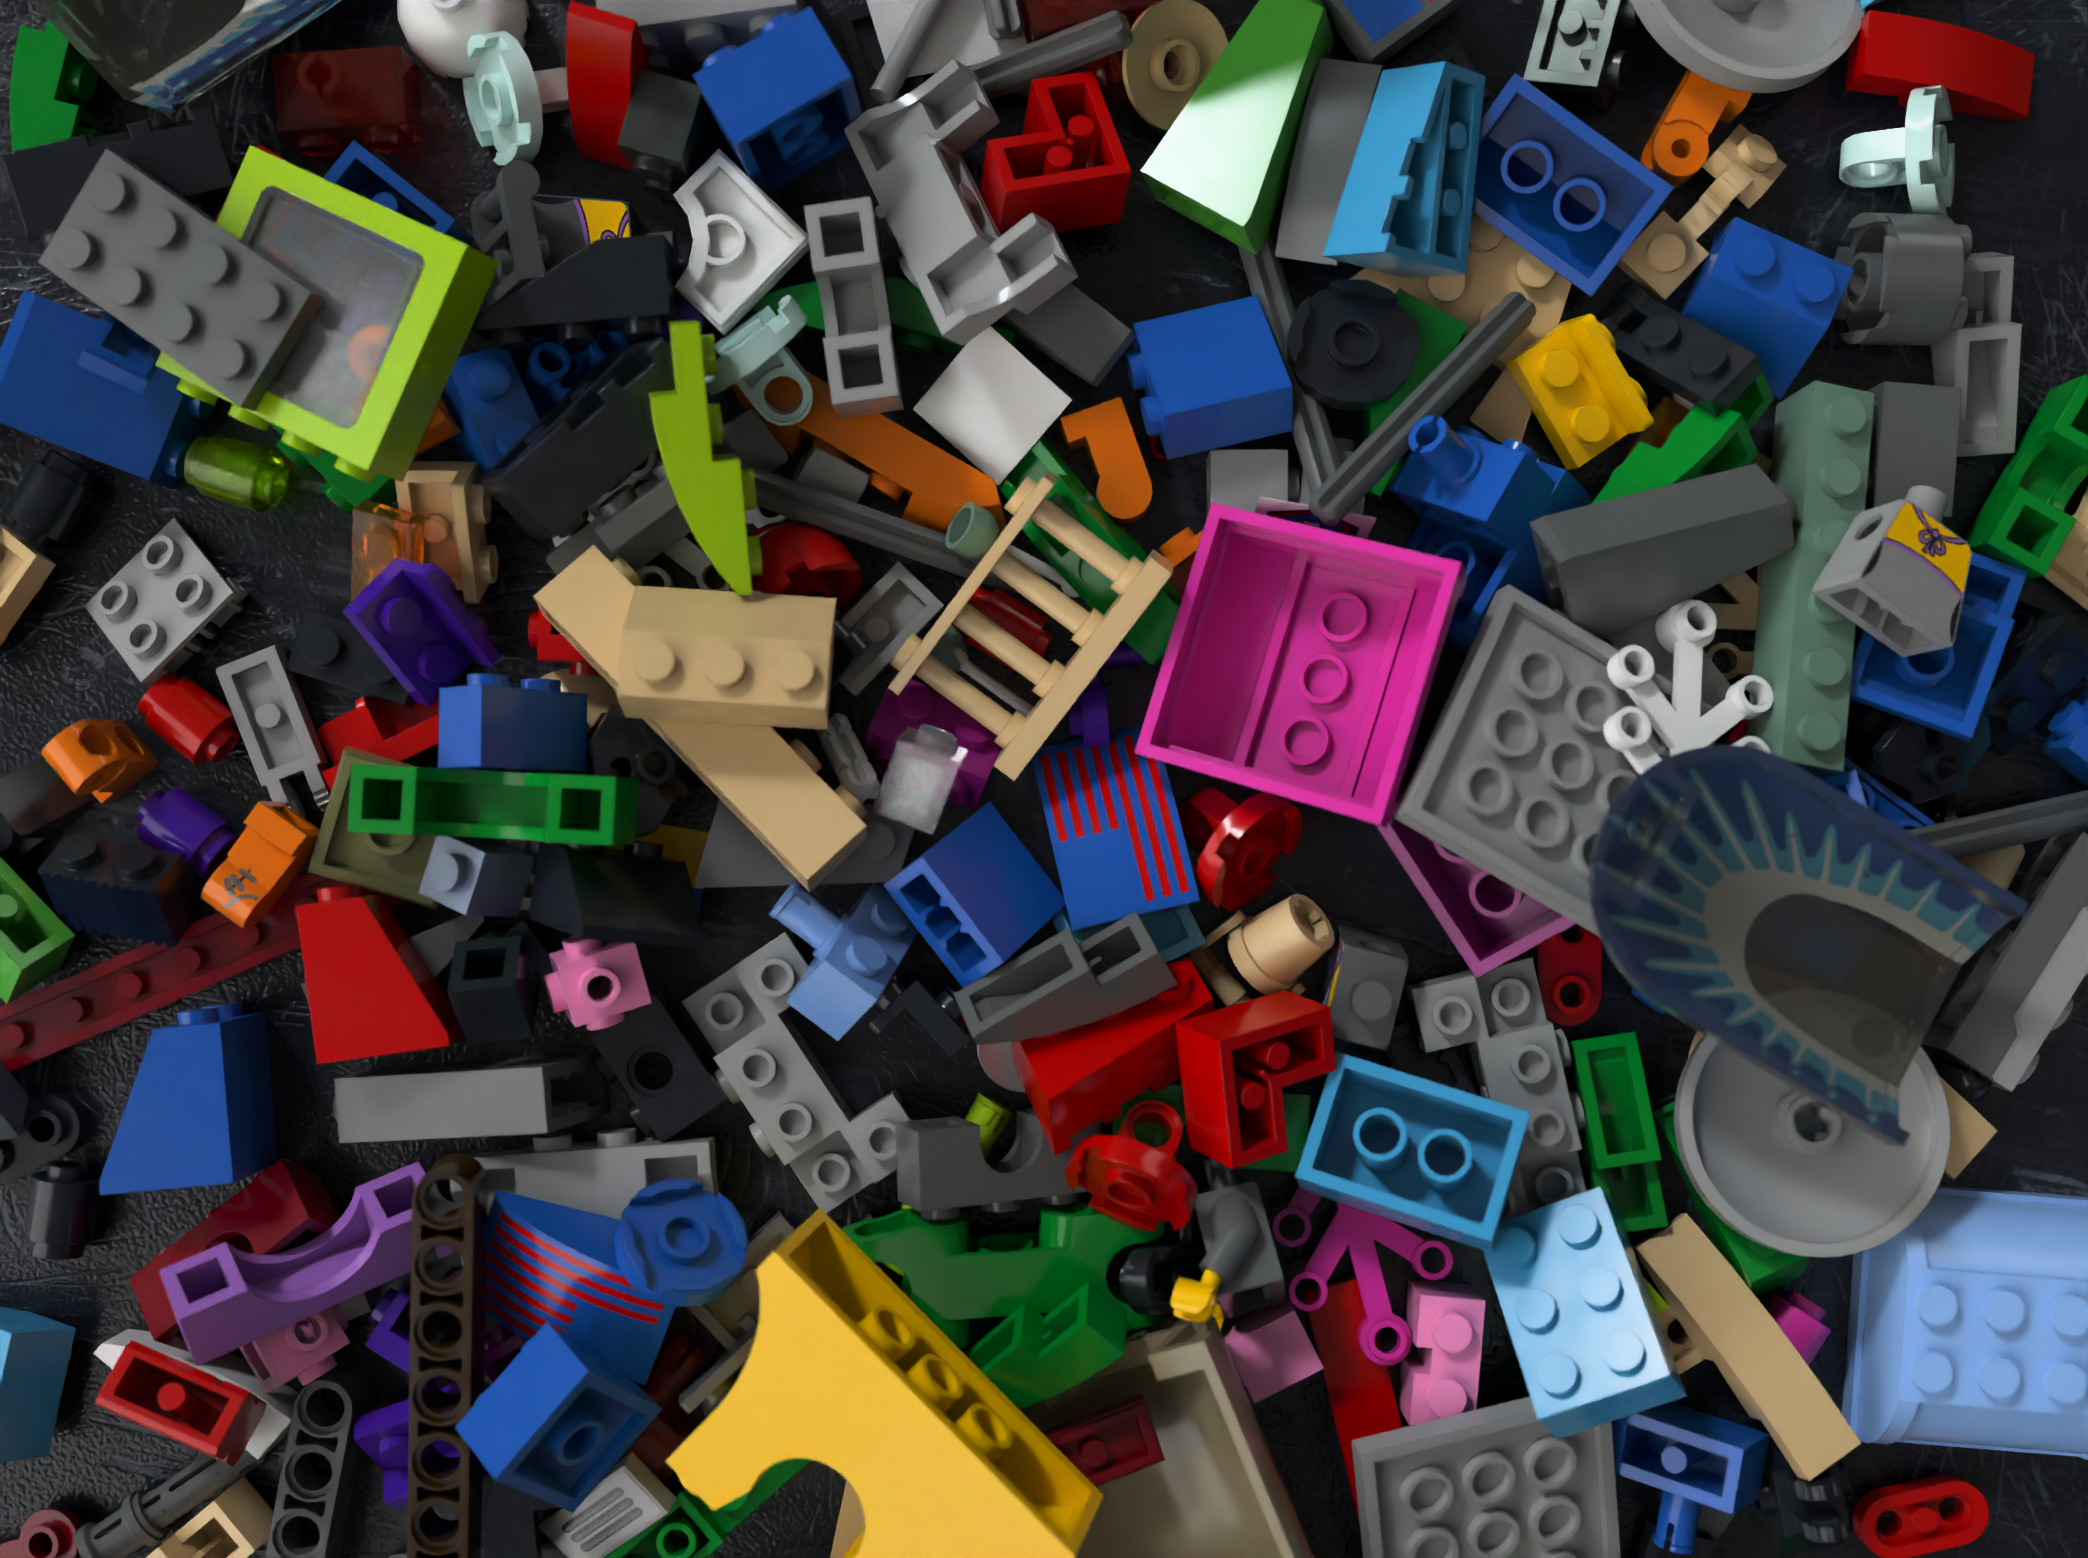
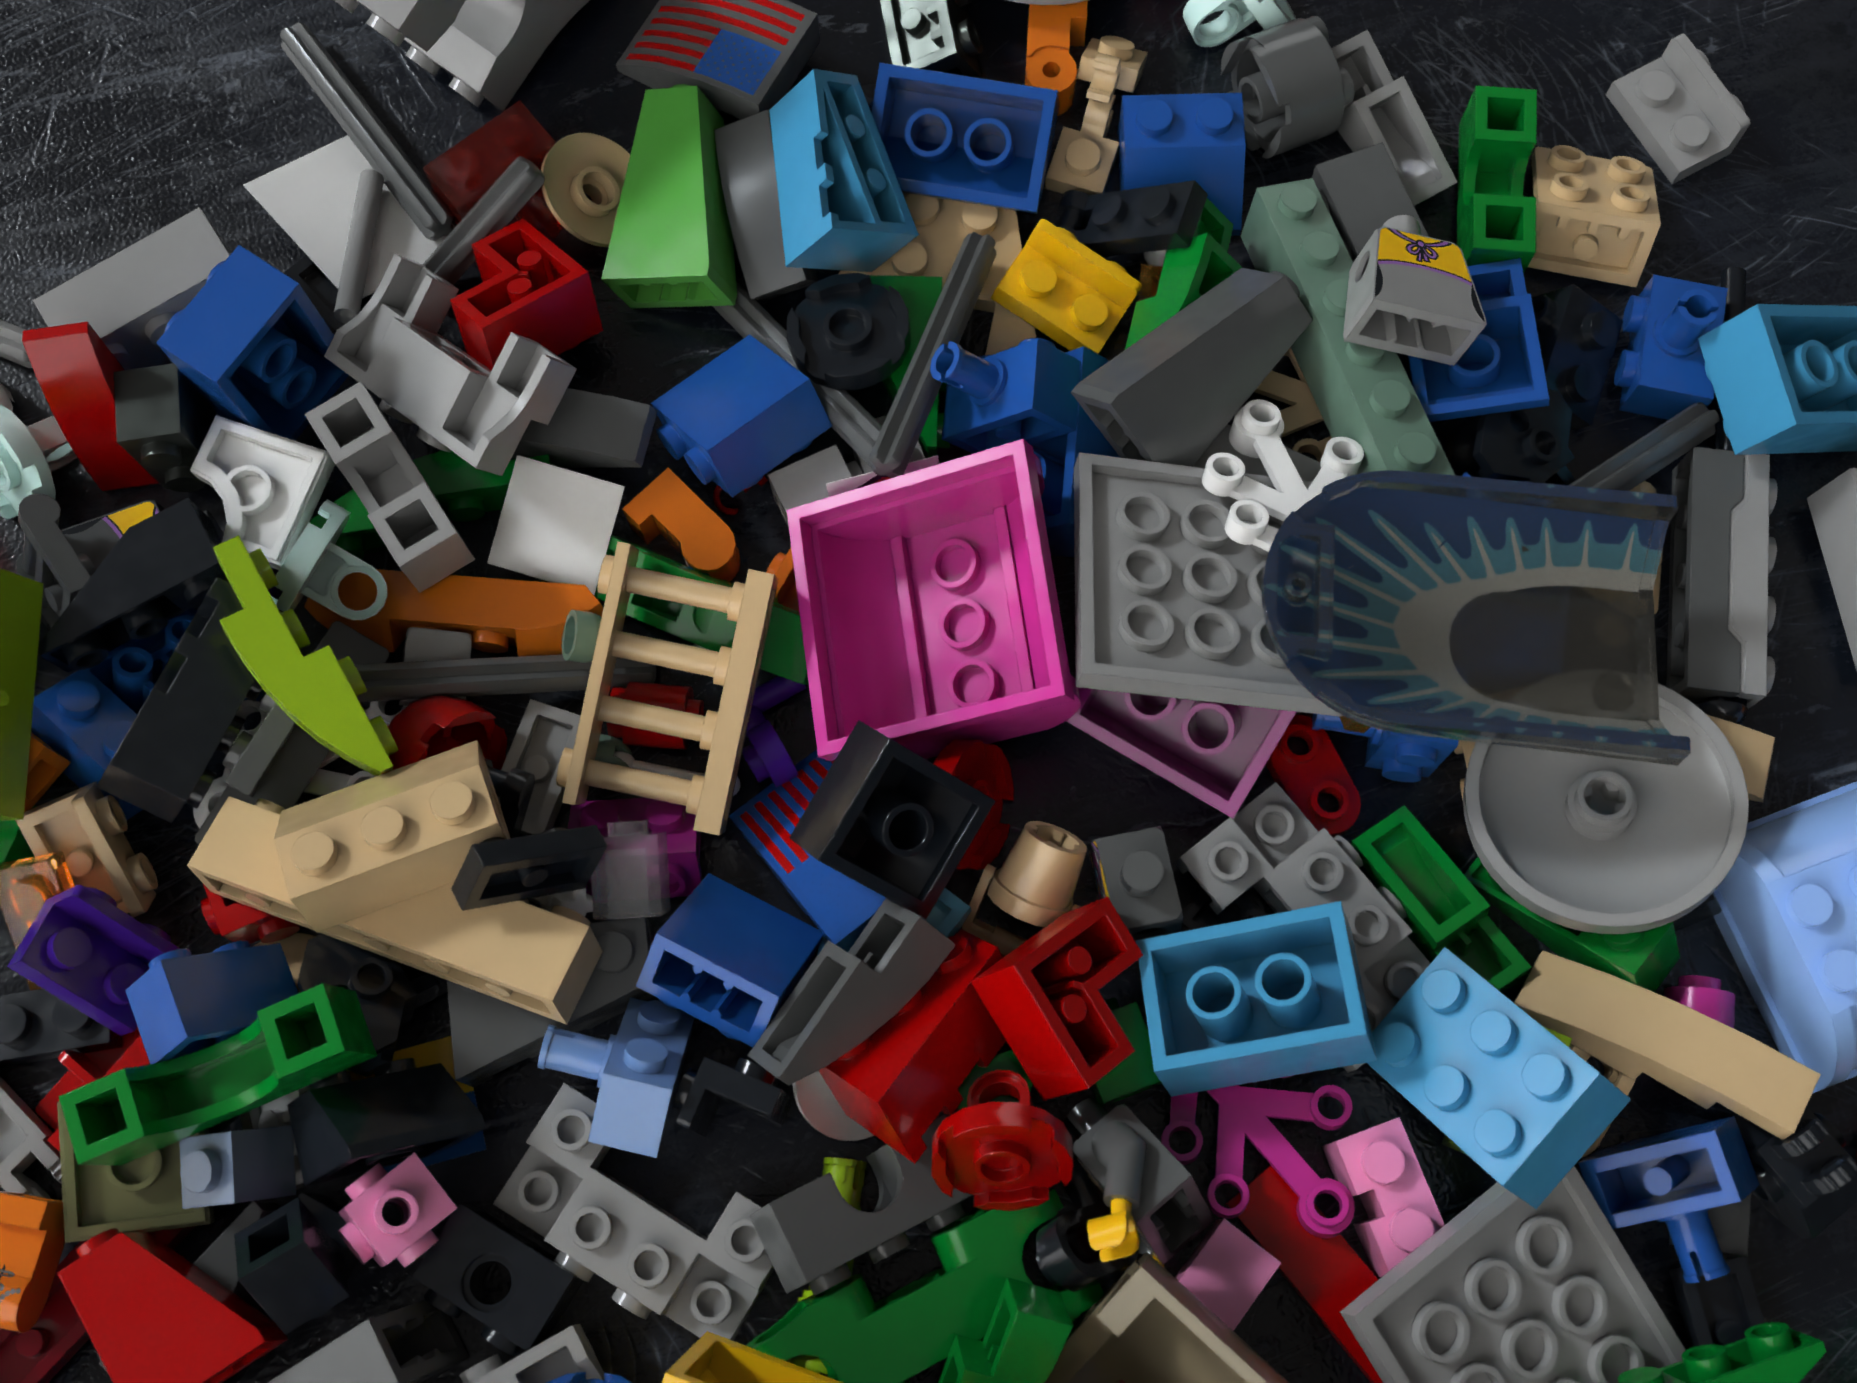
camera: 25 degrees left, 15 degrees down
(848, 750) = (528, 866): none -> black plate
(1172, 849) = (891, 820): none -> black slope

